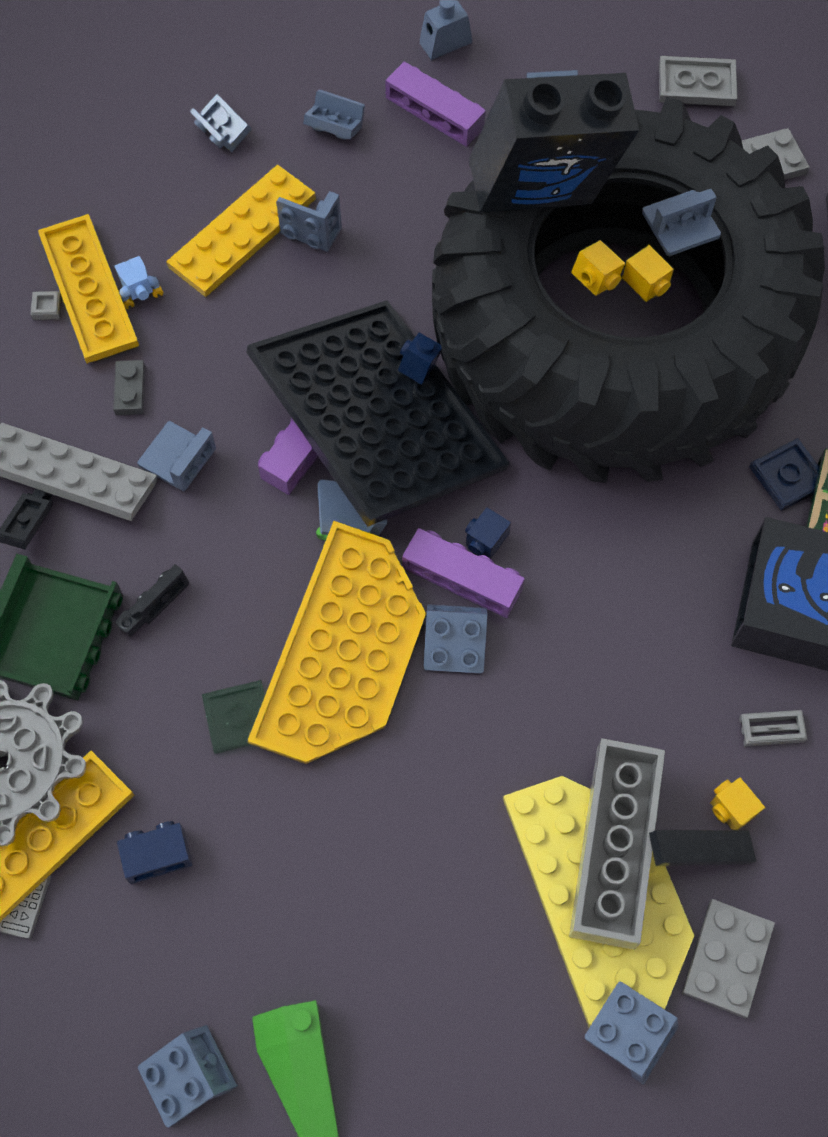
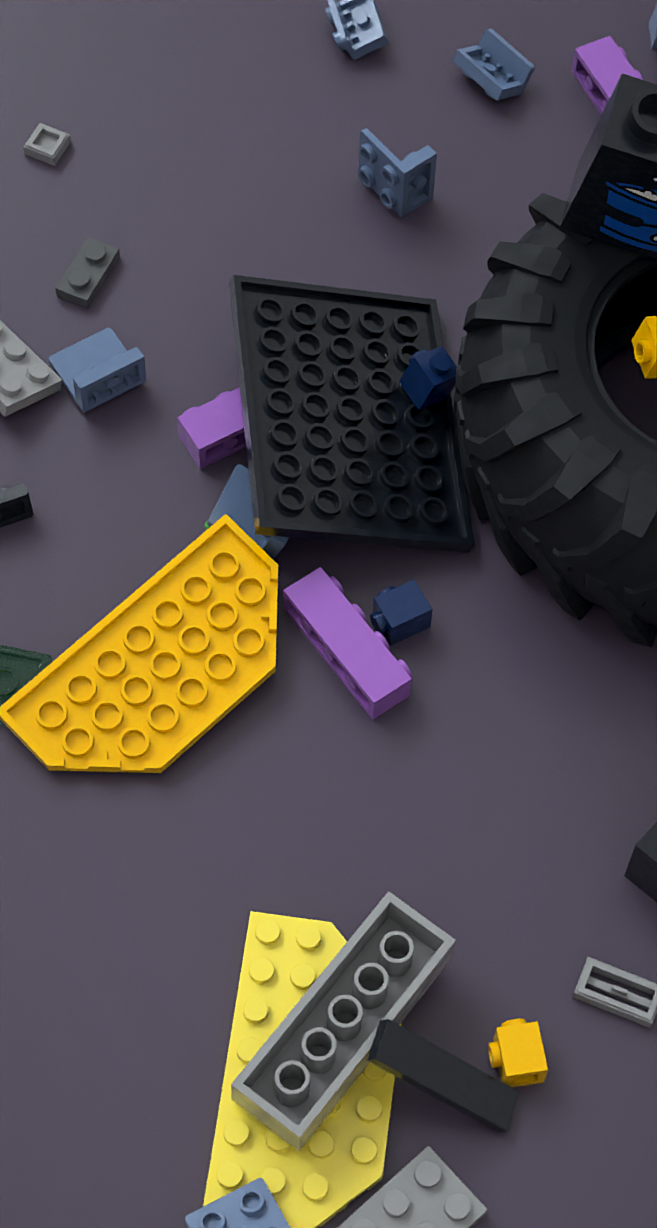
camera: 25 degrees right, 5 degrees down
(88, 288) = (102, 145): yellow plate -> none
(136, 282) = (159, 159): light blue piece -> none
(238, 232) = (308, 152): yellow plate -> none
(455, 638) = (295, 711): sand blue bracket -> none

